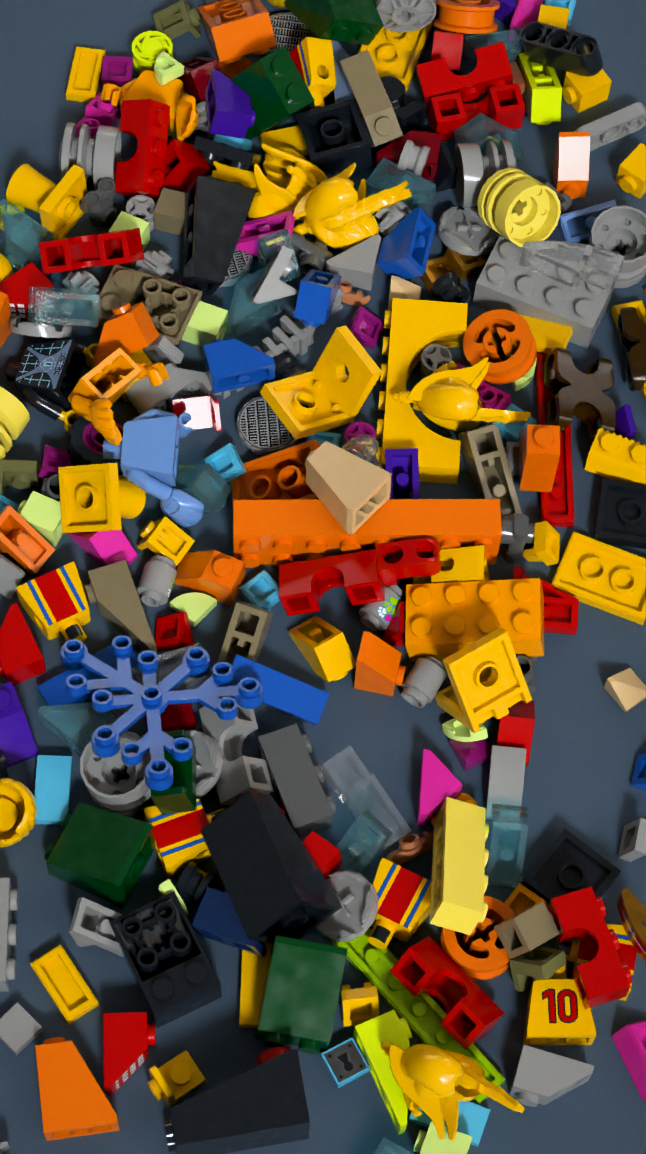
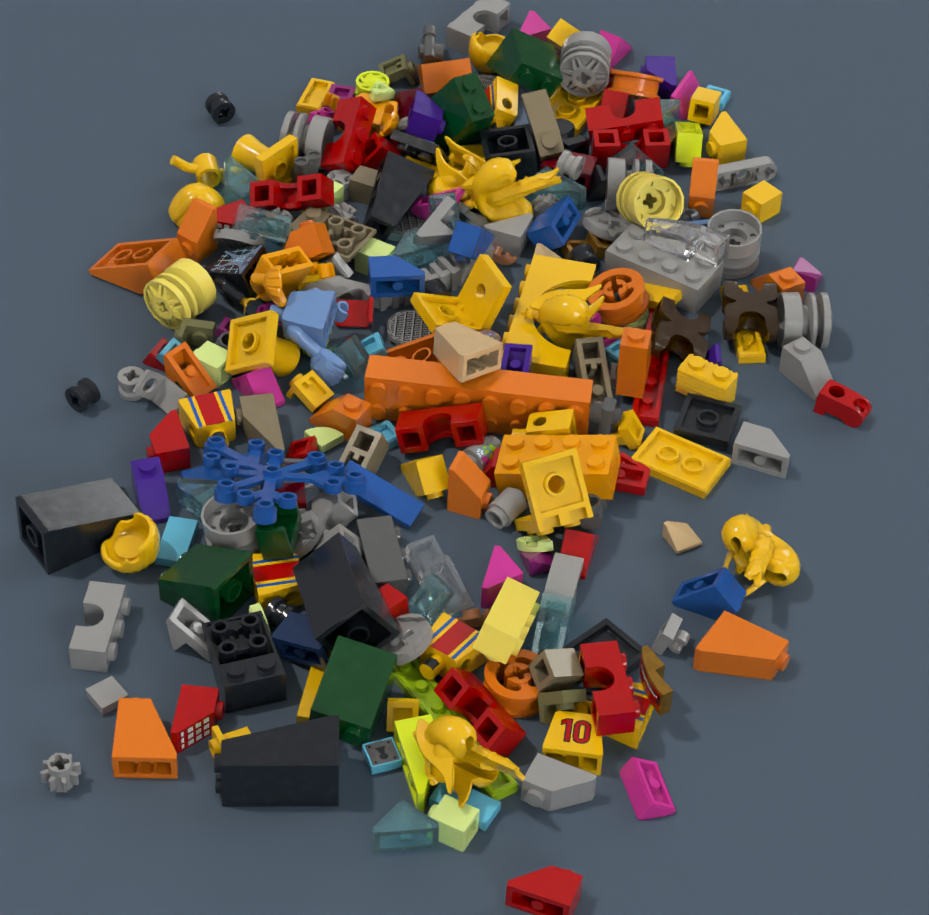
camera: 10 degrees right, 20 degrees down
(64, 984) = (154, 672): yellow tile -> none
(157, 581) = (296, 416): light grey brick -> none
(365, 327) = (512, 275): magenta slope -> none
(407, 559) = (507, 413): red leg -> none
(561, 49) = (708, 111): black beam -> none

